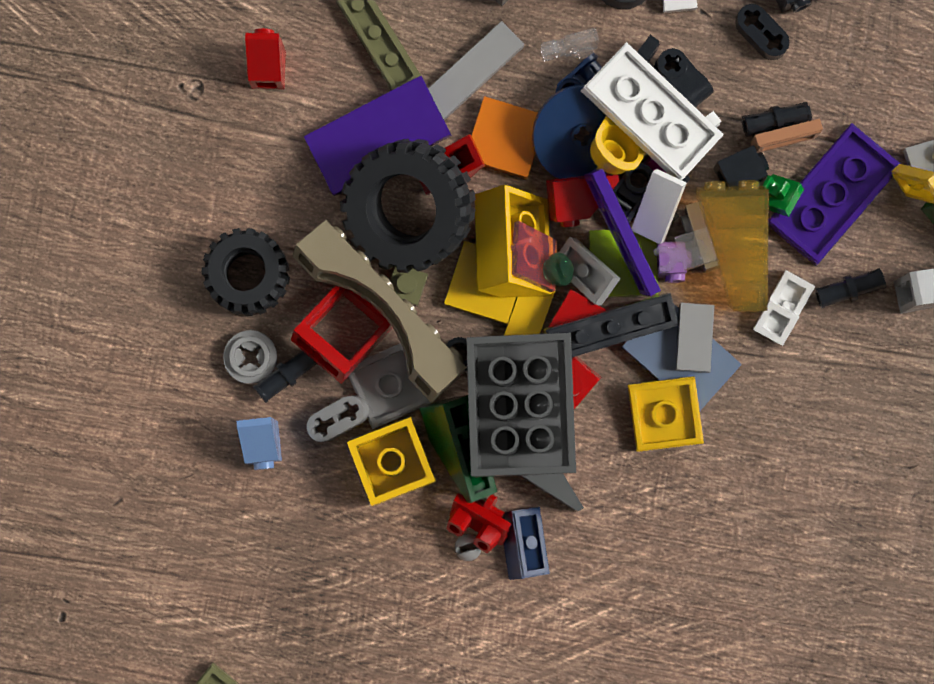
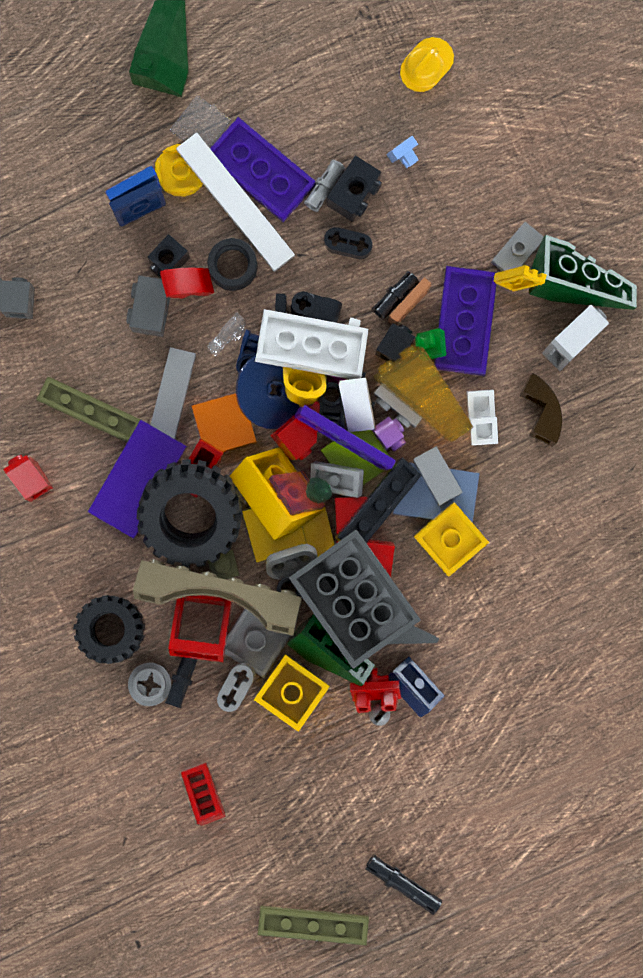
camera: 40 degrees left, 0 degrees up
(222, 536) = (197, 808): none -> red slope
(260, 442) = (195, 738): medium blue slope -> none
(482, 322) = (289, 561): none -> light grey plate
(692, 250) = (398, 420): clear plate -> none
(850, 288) = (517, 376): black pin -> none
(852, 359) = (549, 422): none -> dark brown brick

